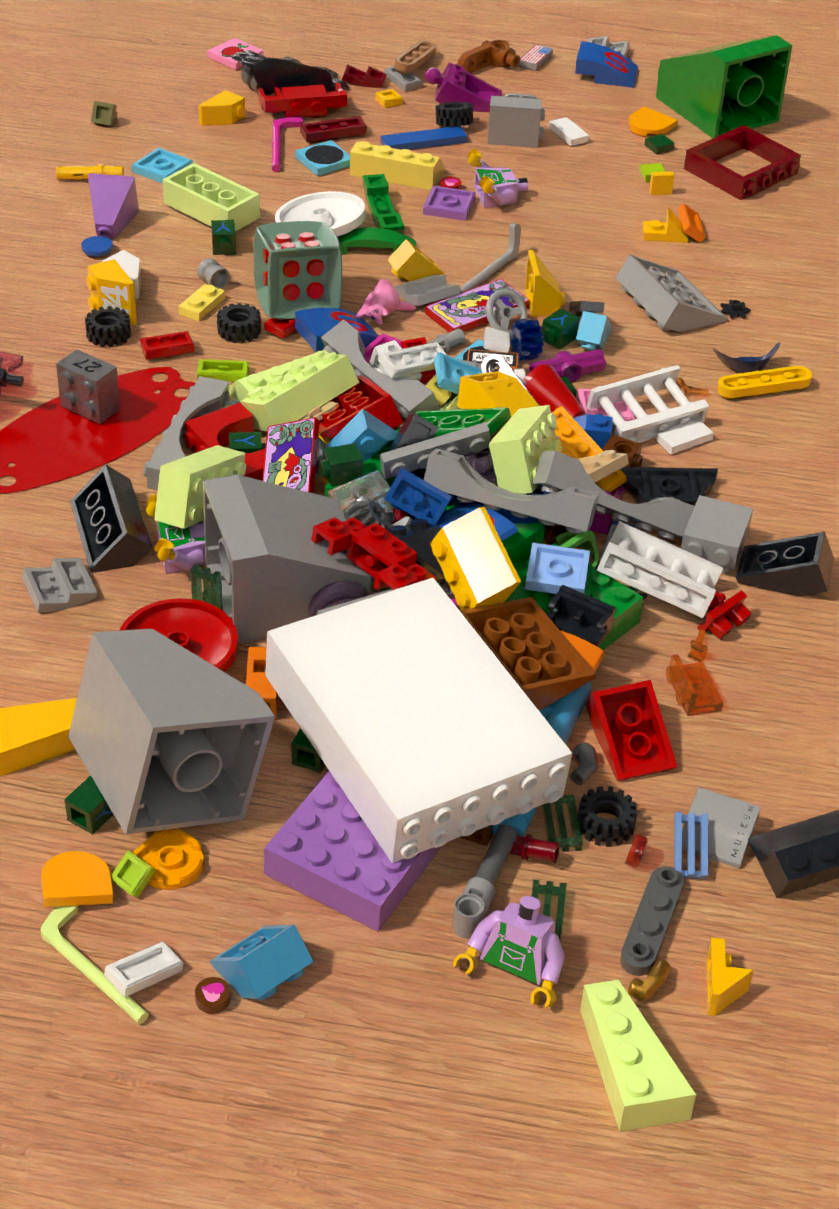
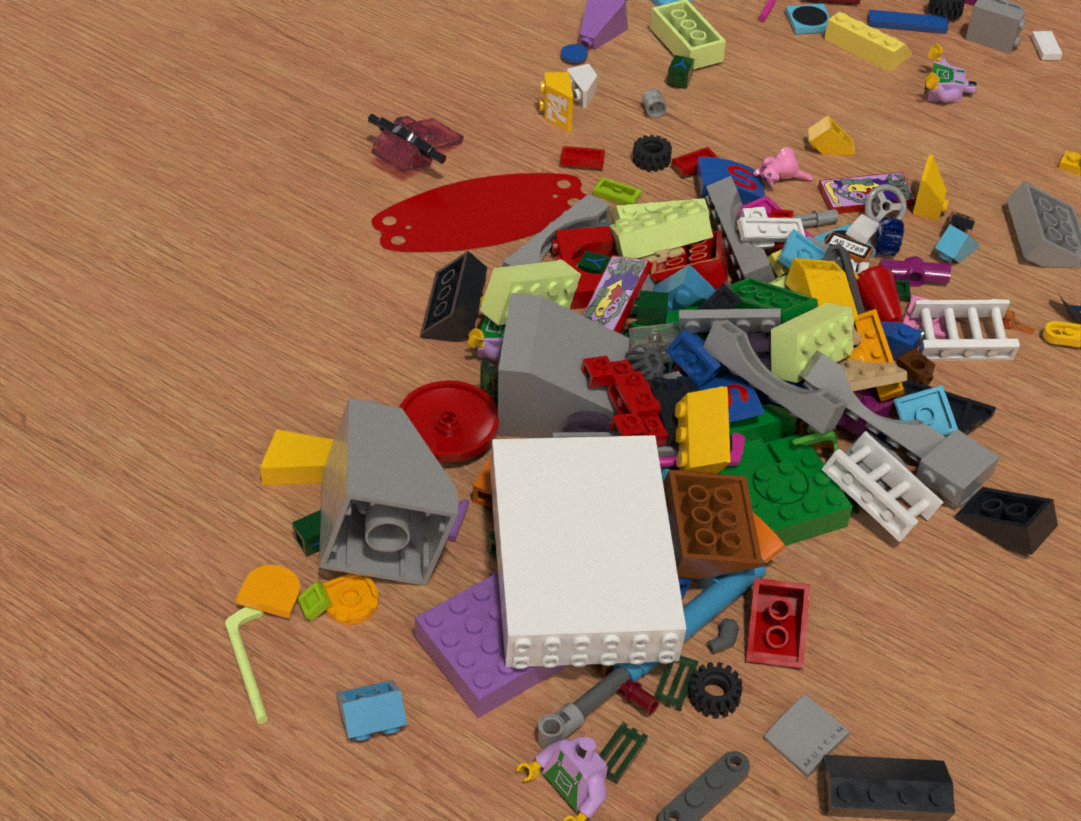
camera: 25 degrees right, 5 degrees up
(60, 586) = (389, 341): light grey slope -> none
(88, 386) = (494, 178): flat silver brick -> none
(108, 326) = (544, 128): black tyre -> none
(143, 969) = (281, 680): white tile -> none
(201, 302) = (633, 126): light yellow plate -> none
(212, 995) = (322, 721): reddish brown tile -> none
(297, 267) = (716, 117): sand green piece -> none
(337, 209) = (771, 73): white dish -> none
(372, 238) = (804, 104): green slope -> none
(380, 204) = (833, 74): green slope -> none
(427, 290) = (830, 165): light grey slope -> none
(449, 203) = (896, 88): medium lavender tile -> none
(451, 182) = (907, 71): red tile -> none
(511, 253) = (928, 148): light grey piece -> none
(556, 566) = (784, 459): light blue plate -> none
(560, 328) = (926, 233): dark green brick -> none
(581, 615) = (779, 507): black hinge -> none
(636, 851) = (722, 729): clear red tile -> none
(658, 482) = (930, 407): none -> medium azure tile
(684, 436) = (986, 367): white tile -> none
(691, 820) = (781, 719): medium blue tile -> none
(693, 687) = (859, 602): clear orange bracket -> none
(698, 650) = (882, 568): clear orange hand -> none
(720, 610) = (913, 547): red hips -> none

